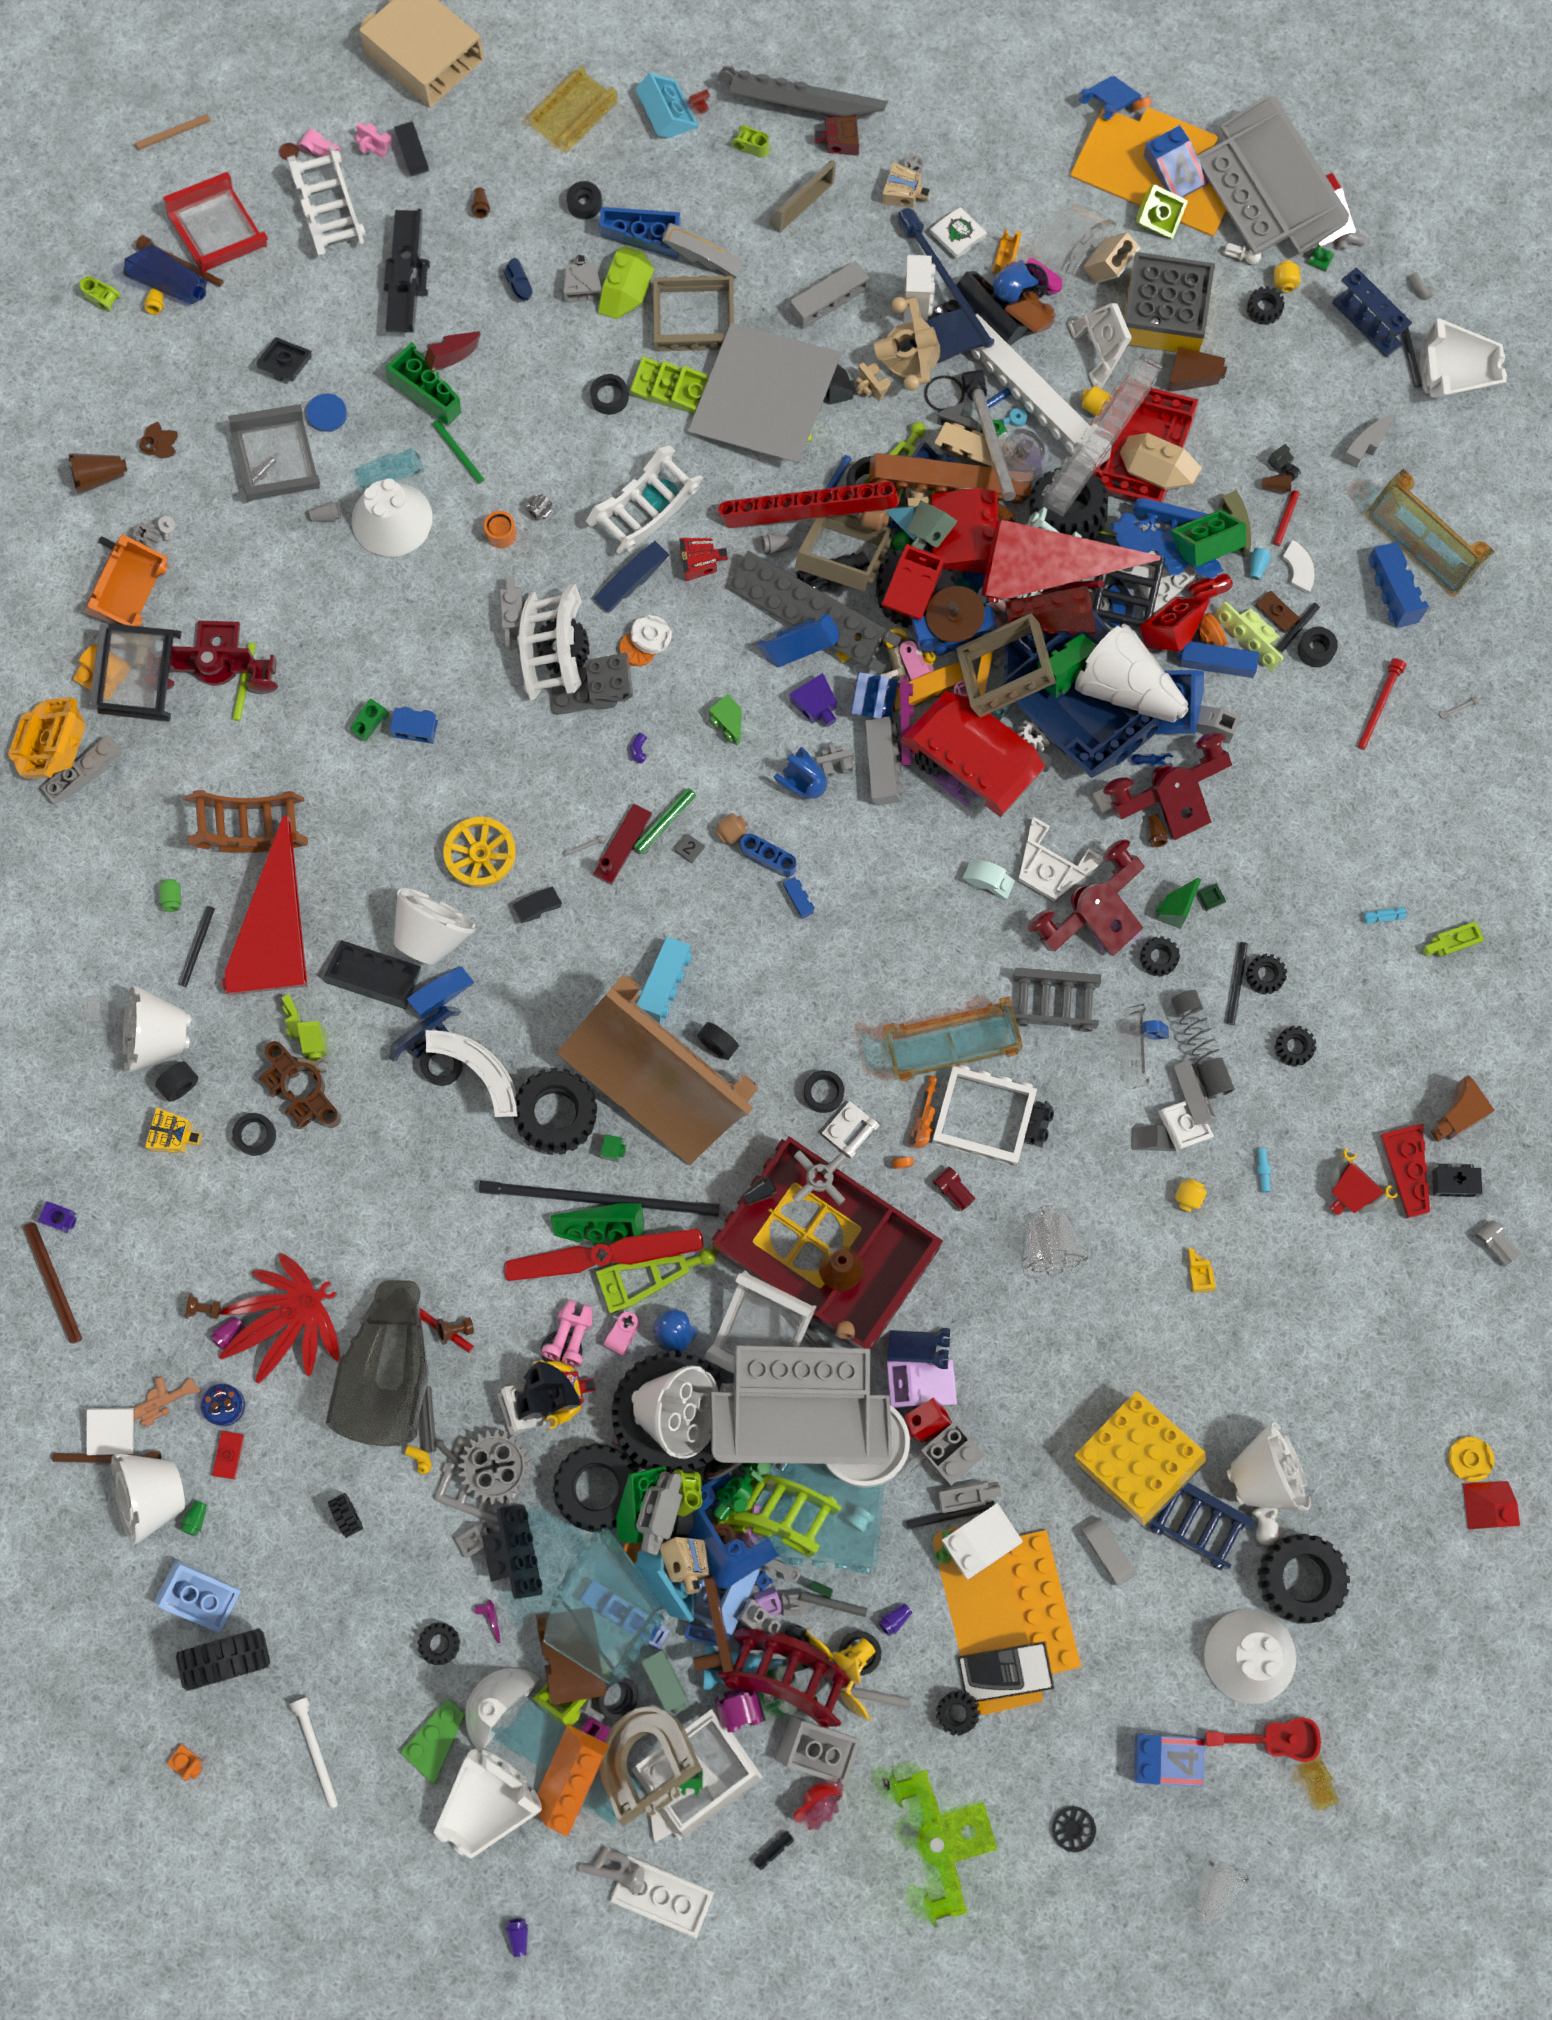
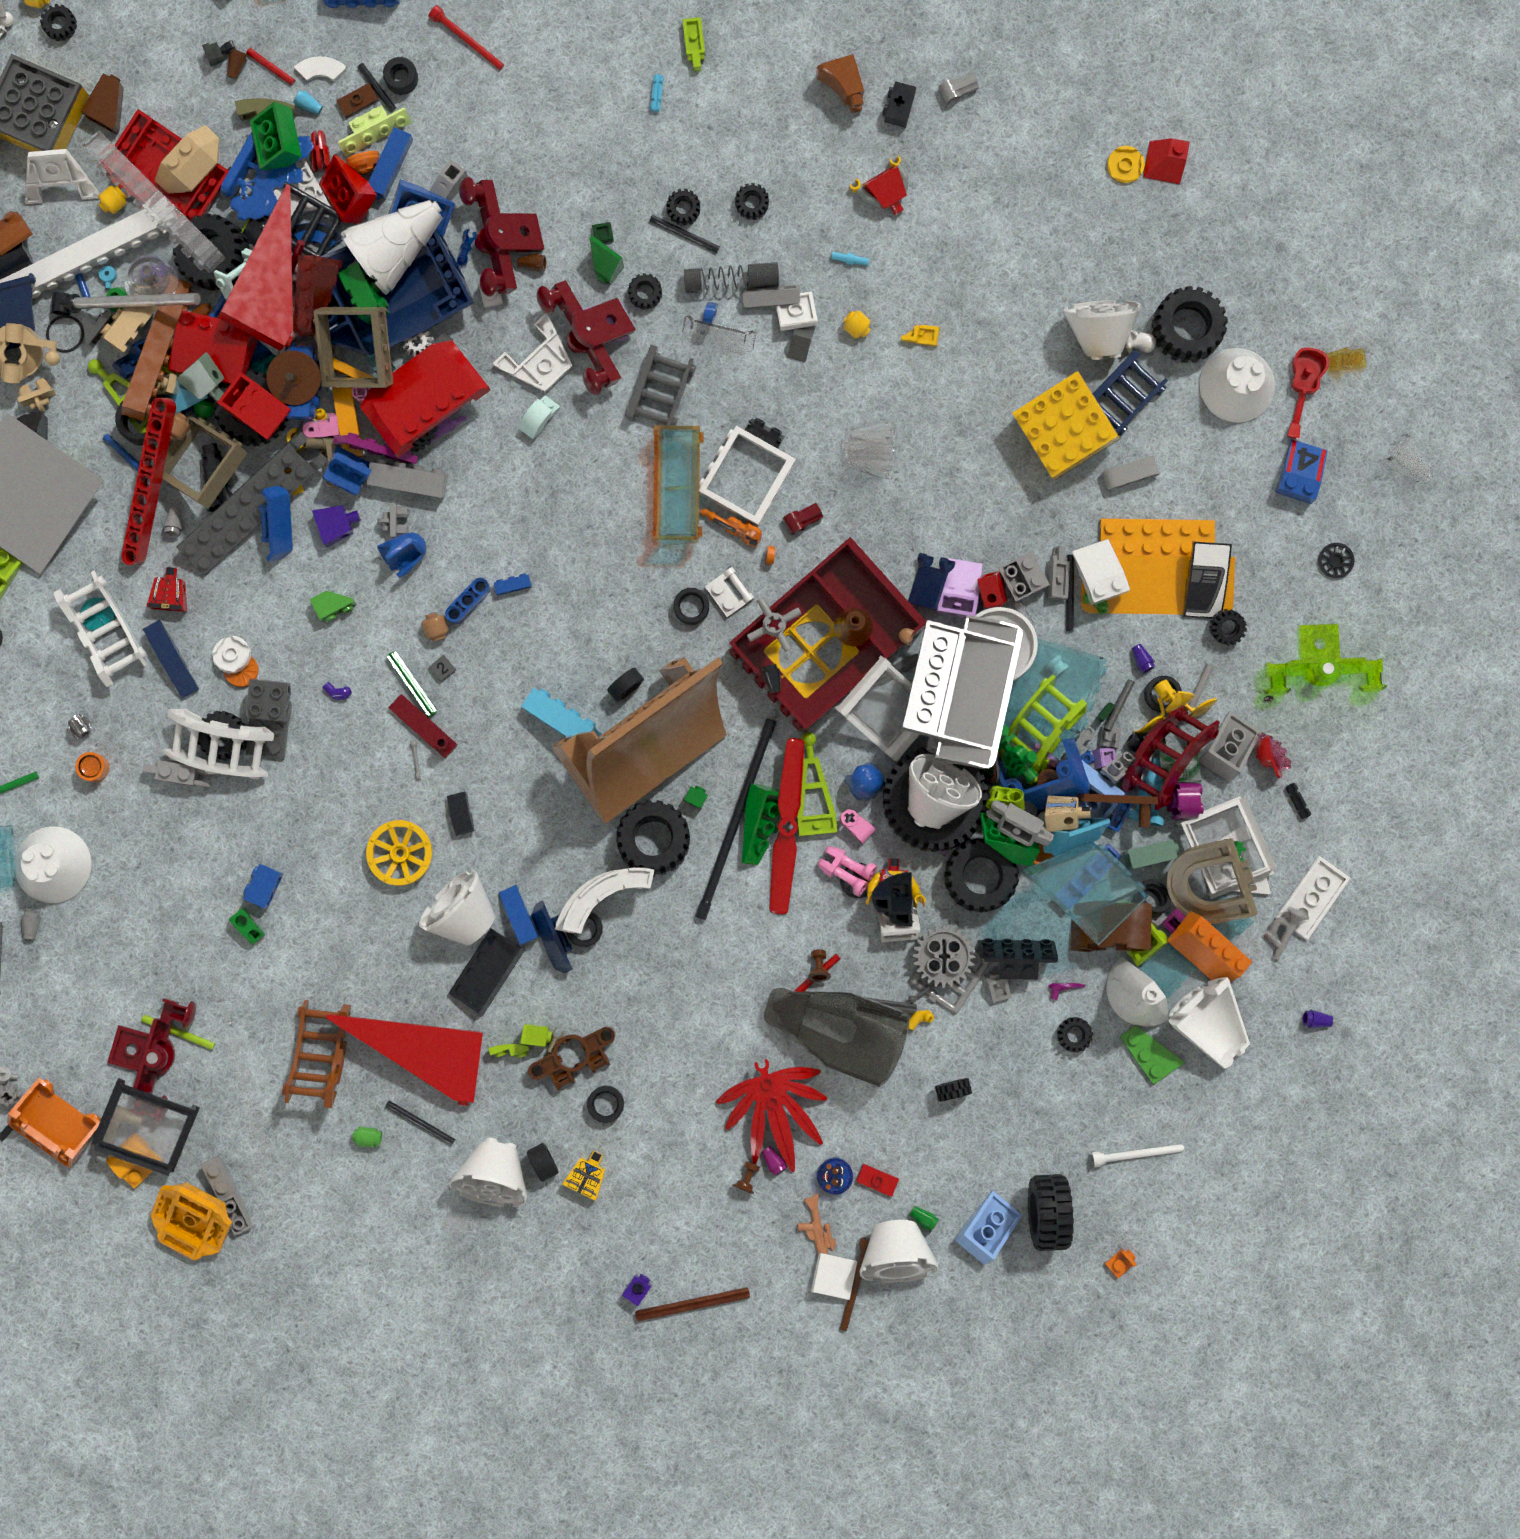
camera: 80 degrees left, 10 degrees up
(1406, 1159) = (870, 139): red wing -> none

